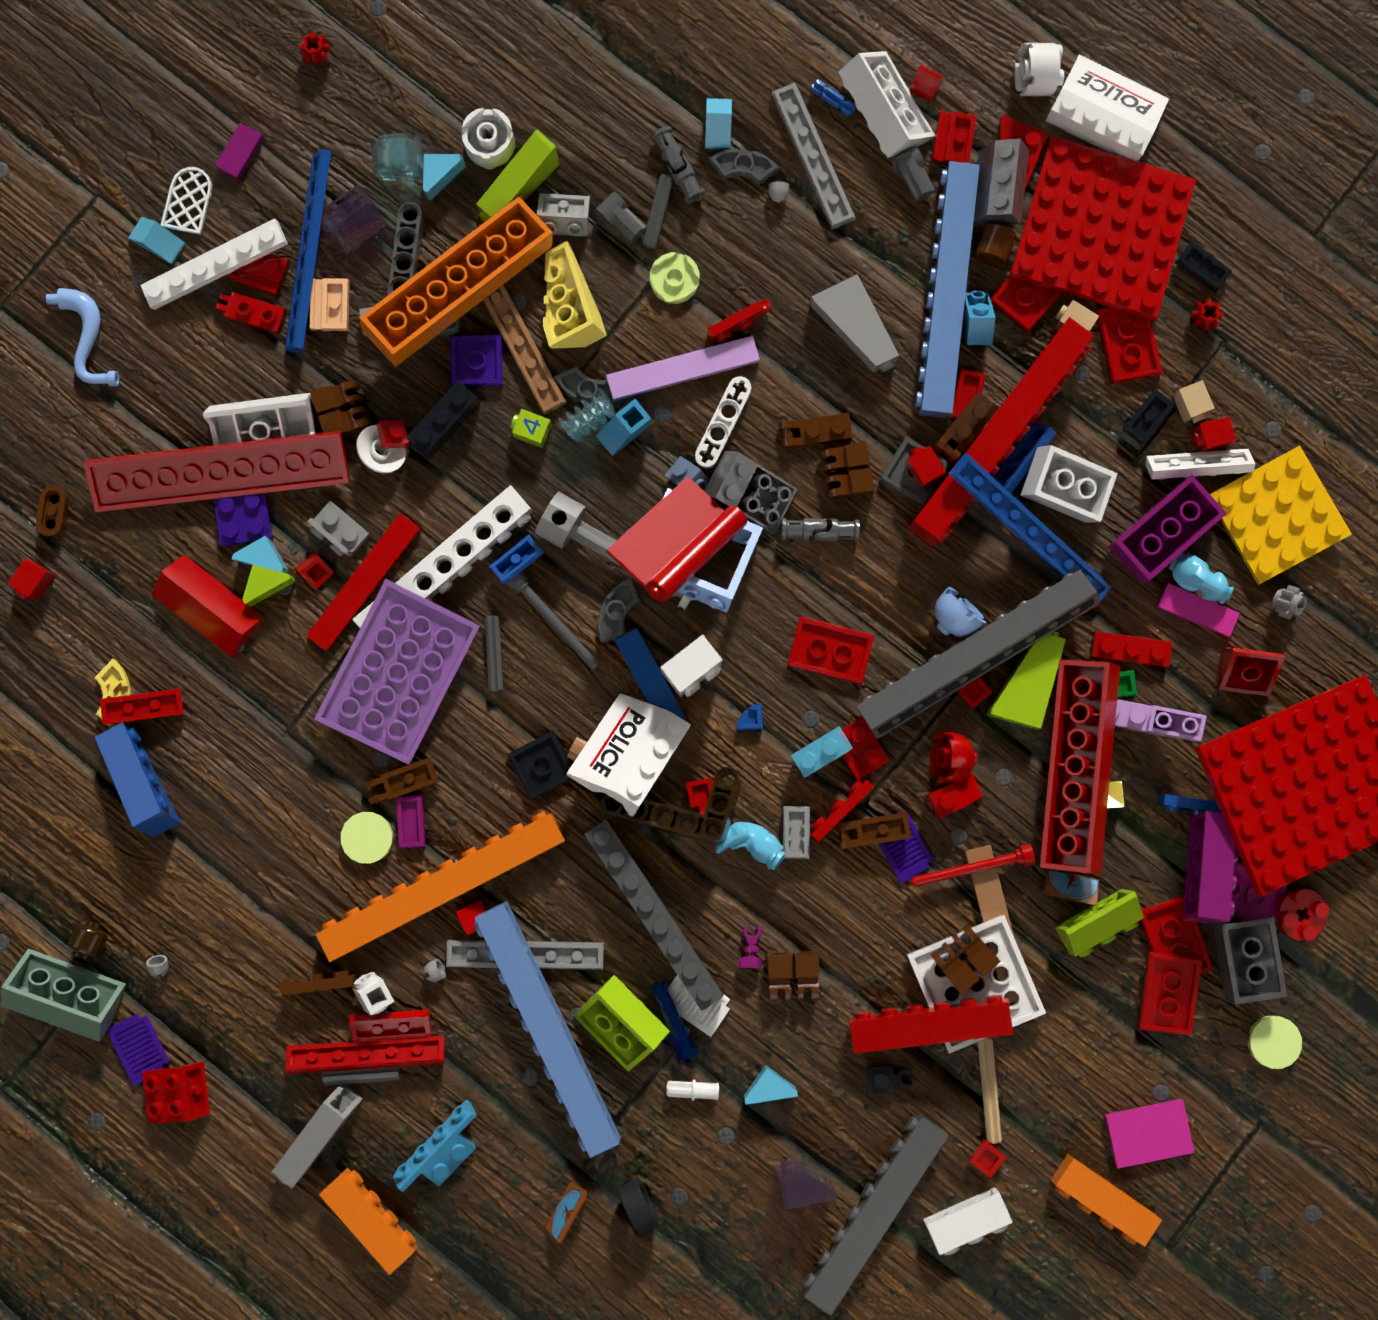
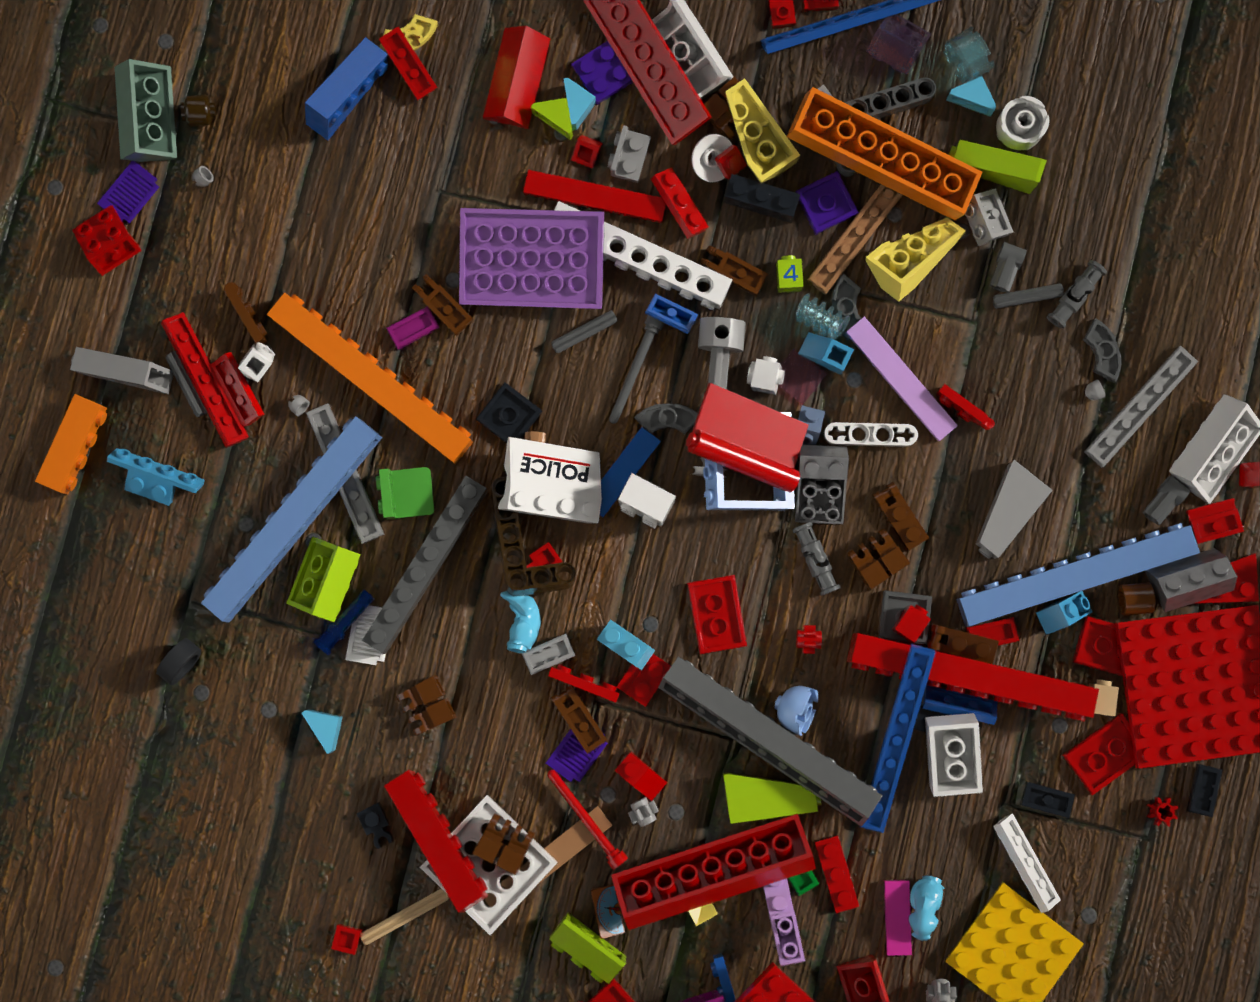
camera: 75 degrees right, 0 degrees up
(329, 305) = (816, 58): light nougat plate -> none
(367, 837) = (383, 297): yellowish green tile -> none
(384, 392) = (761, 138): none -> light yellow wedge
(409, 502) = (679, 203): none -> red plate
(467, 916) = (356, 409): red slope -> none
(509, 472) = (742, 273): none -> reddish brown hinge
(566, 1211) = (149, 604): slope -> none
(572, 902) = (405, 493): none -> bright green bracket
(619, 496) = (765, 375): none -> white brick
(634, 466) = (800, 377): none -> clear pink piece
(674, 278) = (977, 336): yellowish green tile -> none
(692, 1090) = (294, 664): white axle -> none
(718, 124) = (1130, 312): medium azure slope -> none
(751, 718) = (627, 573): blue tile -> none
(751, 949) = (424, 664): magenta piece -> none
(802, 1185) = (255, 791): clear purple slope -> none
(833, 97) = (1200, 400): blue axle -> none
(874, 1213) = (259, 863): dark grey brick -> none
(895, 572) = (809, 639): none -> red gear
(952, 757) = (671, 759): red cylinder -> none
(968, 1221) = (286, 945): white brick -> none
(974, 692) = (736, 753): red plate -> none
(991, 808) = (643, 812): none -> light grey gear
(1167, 529) = (954, 858): magenta brick -> none
(1193, 402) = (1078, 834): tan brick -> none
(1213, 434) = (1058, 863): red brick -> none

